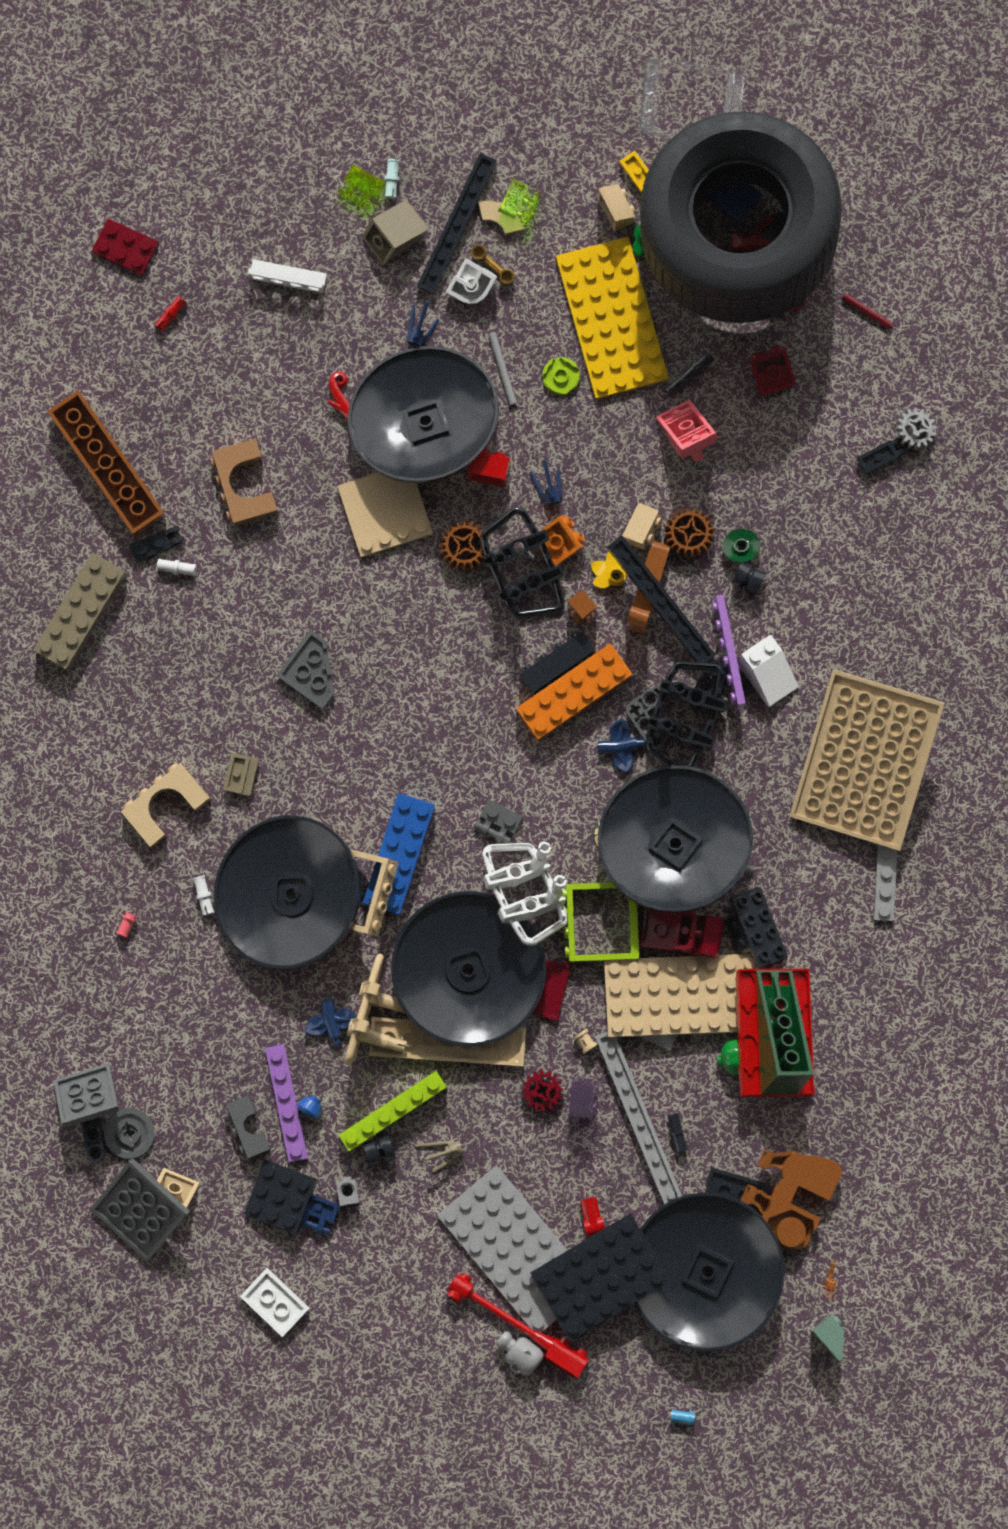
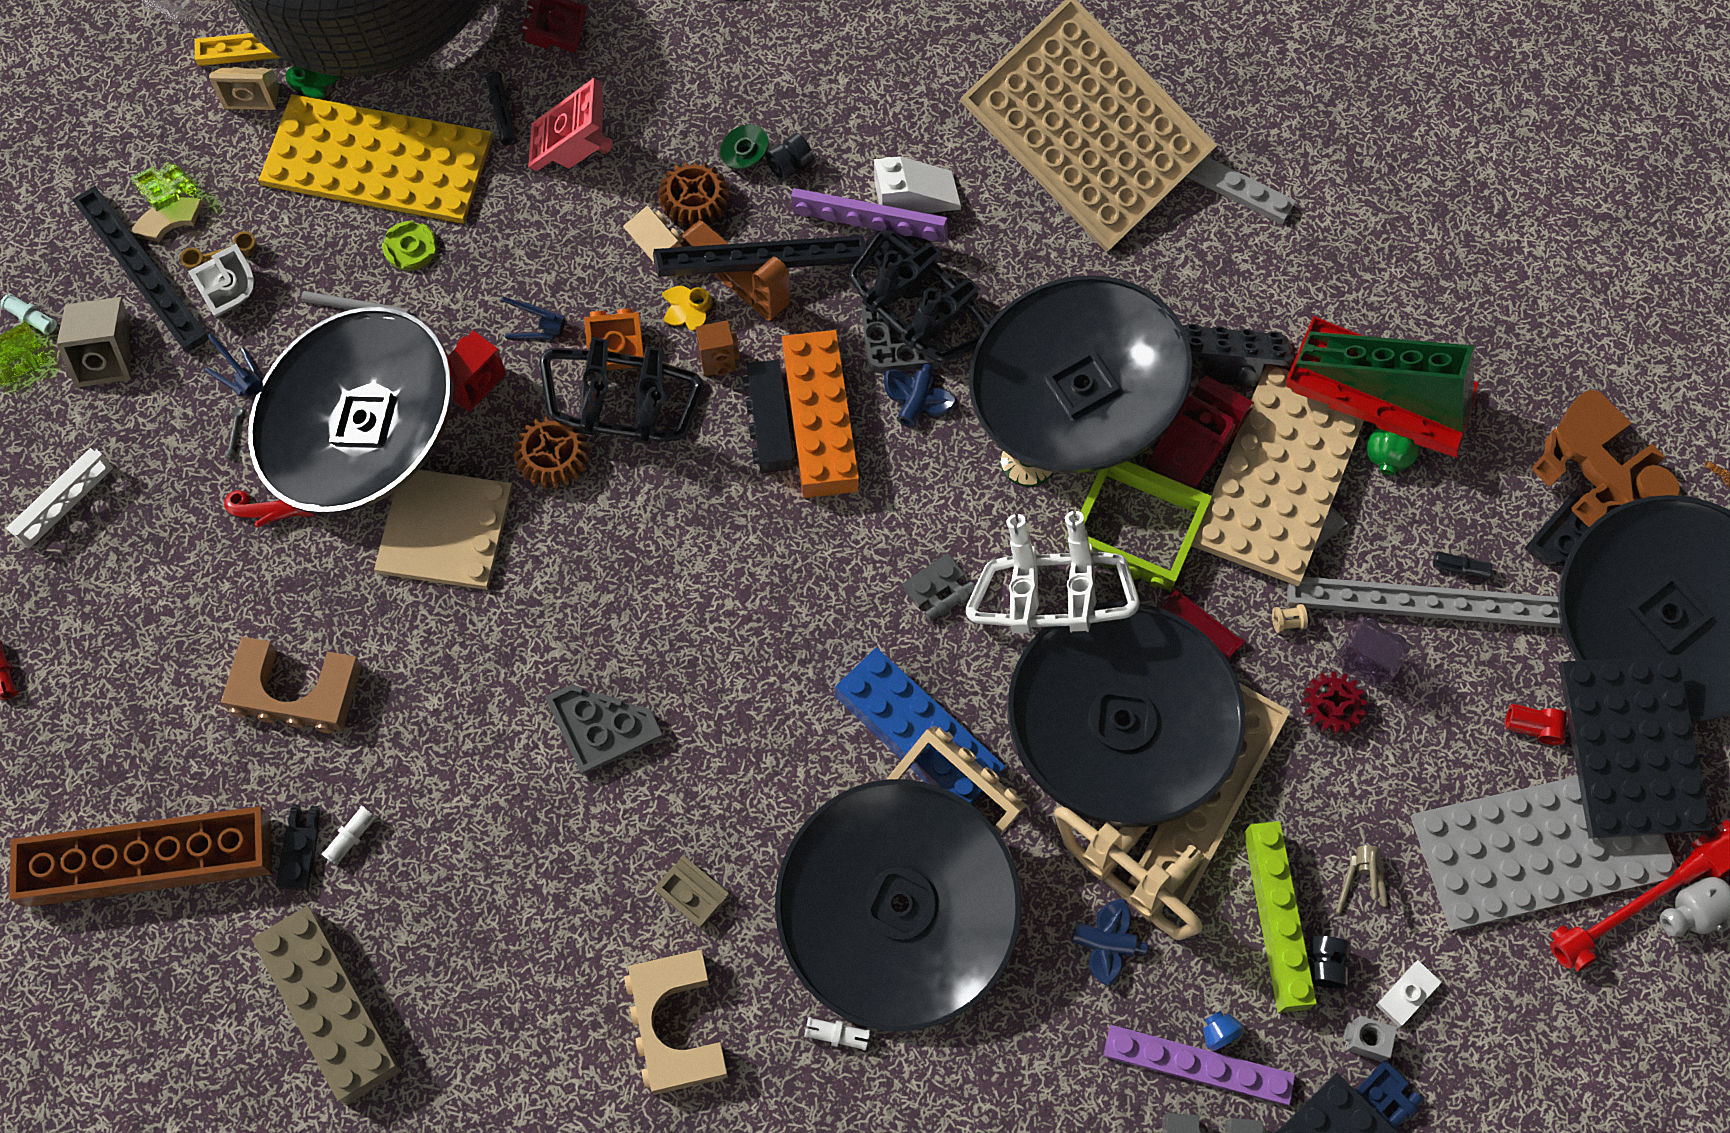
camera: 70 degrees left, 15 degrees down
(386, 1204) = (1408, 993): none -> white plate
(395, 343) = (237, 413): none -> dark grey hinge

